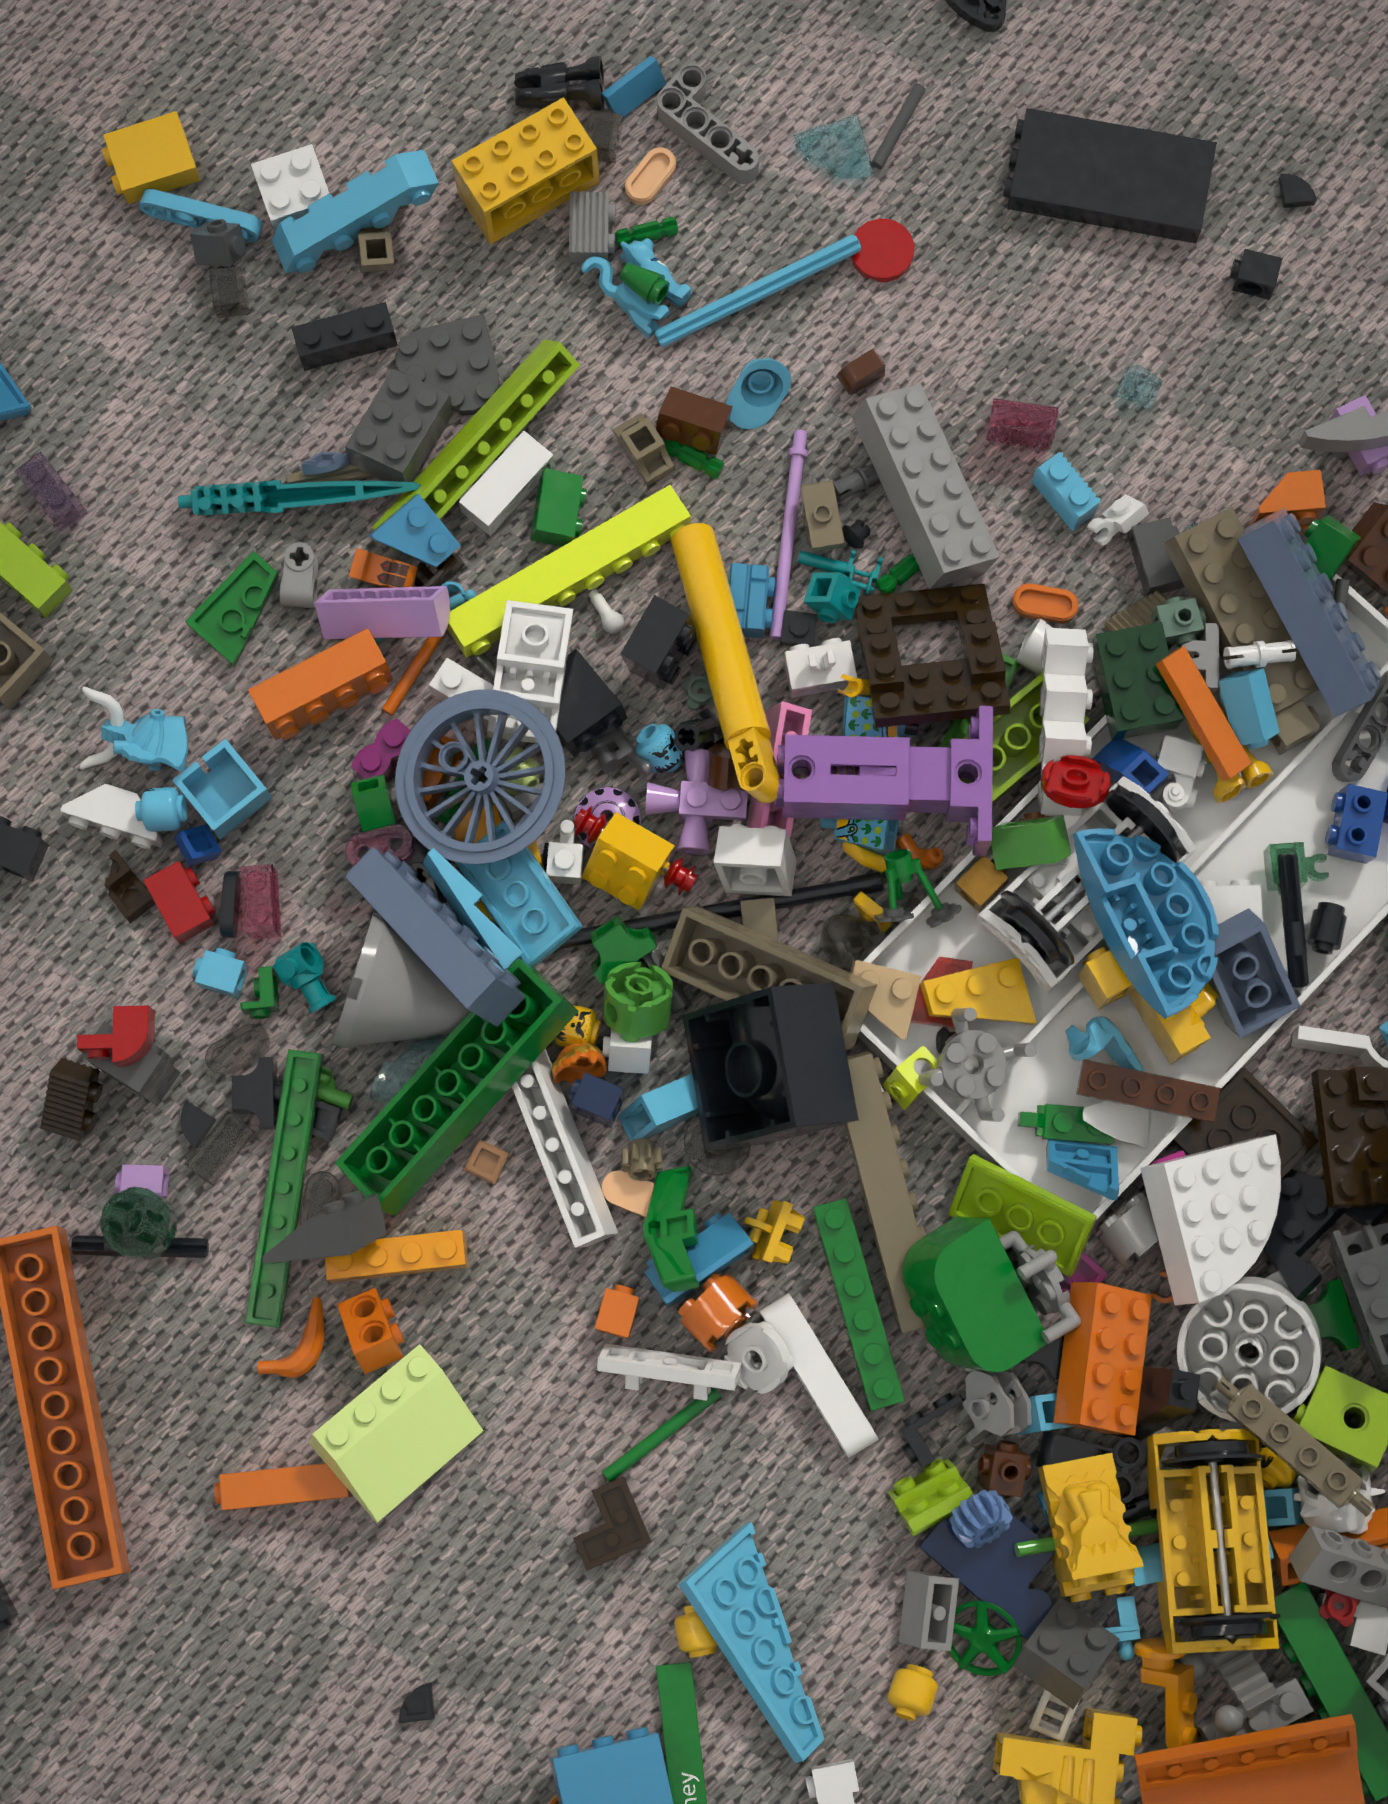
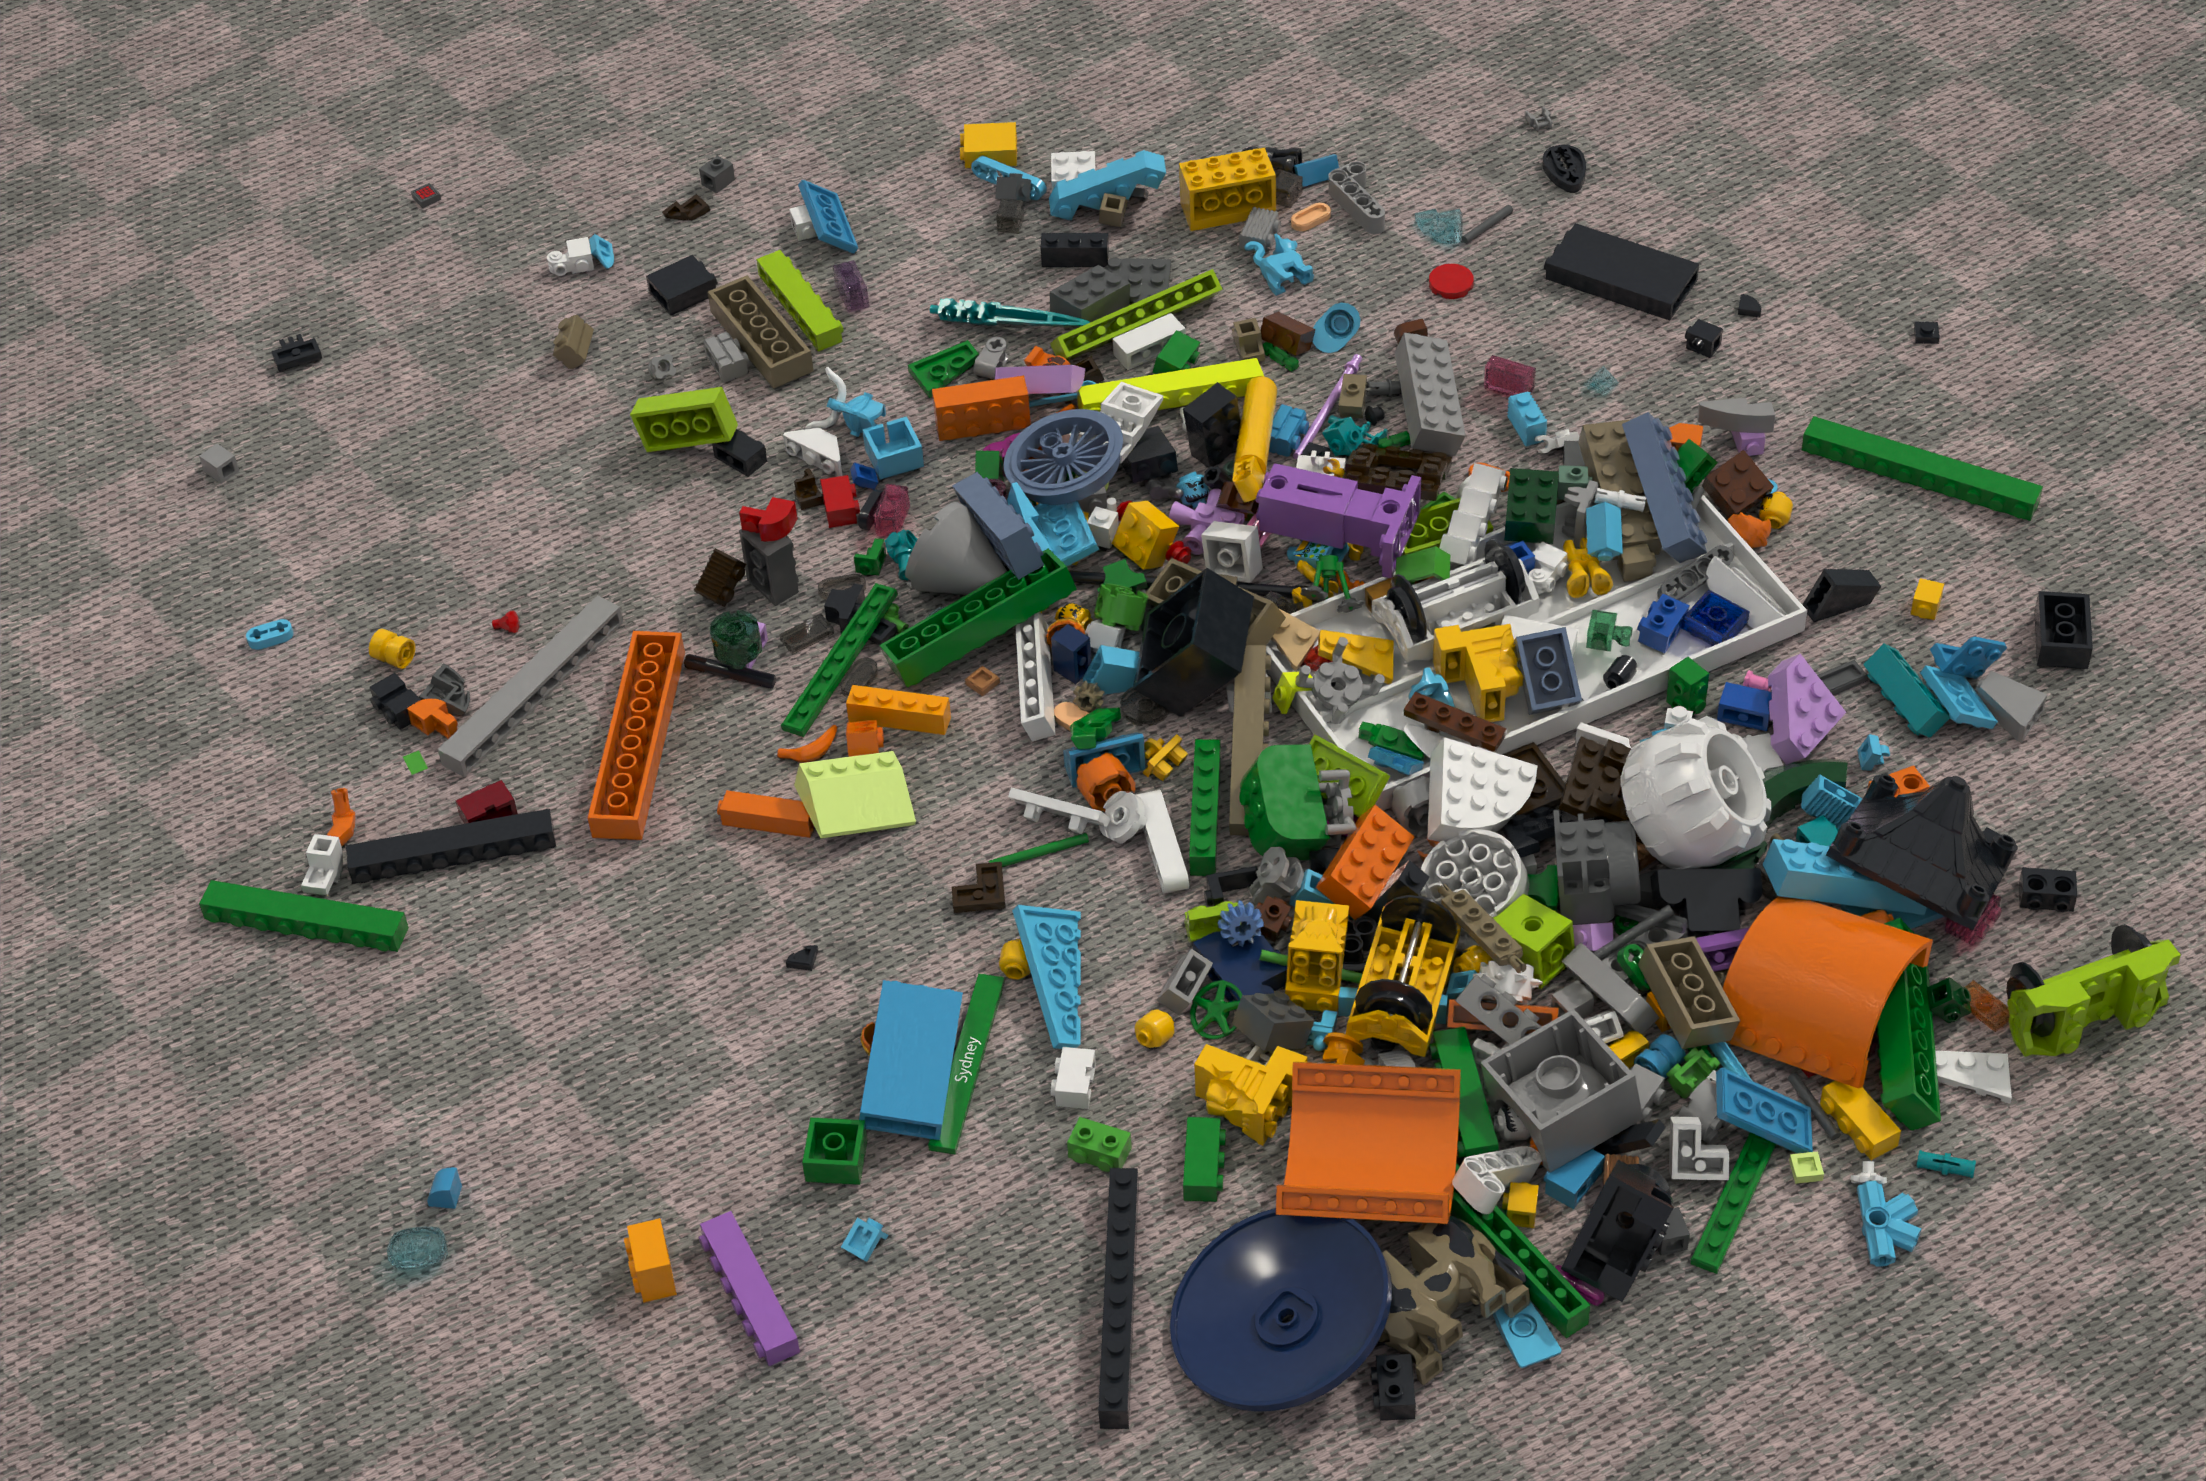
camera: 20 degrees right, 30 degrees down
(161, 809) = (849, 442): medium azure head -> none
(195, 1123) = (796, 616): black tile -> none
(220, 972) = (848, 541): medium azure brick -> none
(324, 462) = (1041, 306): sand blue tile -> none
(335, 1231) = (857, 662): dark grey slope -> none
(417, 533) = (1077, 342): dark azure wing -> none
(618, 1311) = (1035, 774): orange brick -> none
(645, 283) = (1284, 255): green cone -> none
(650, 230) = (1302, 242): green axle -> none
(757, 290) = (1357, 281): medium azure axle -> none
(1075, 782) = (1464, 534): red tile -> none
(1150, 916) = (1484, 604): dark azure brick -> none
(1203, 713) = (1569, 524): orange tile -> none
(1293, 920) = (1594, 653): black axle -> none
(1343, 1615) = (1484, 1035): red plate -> none

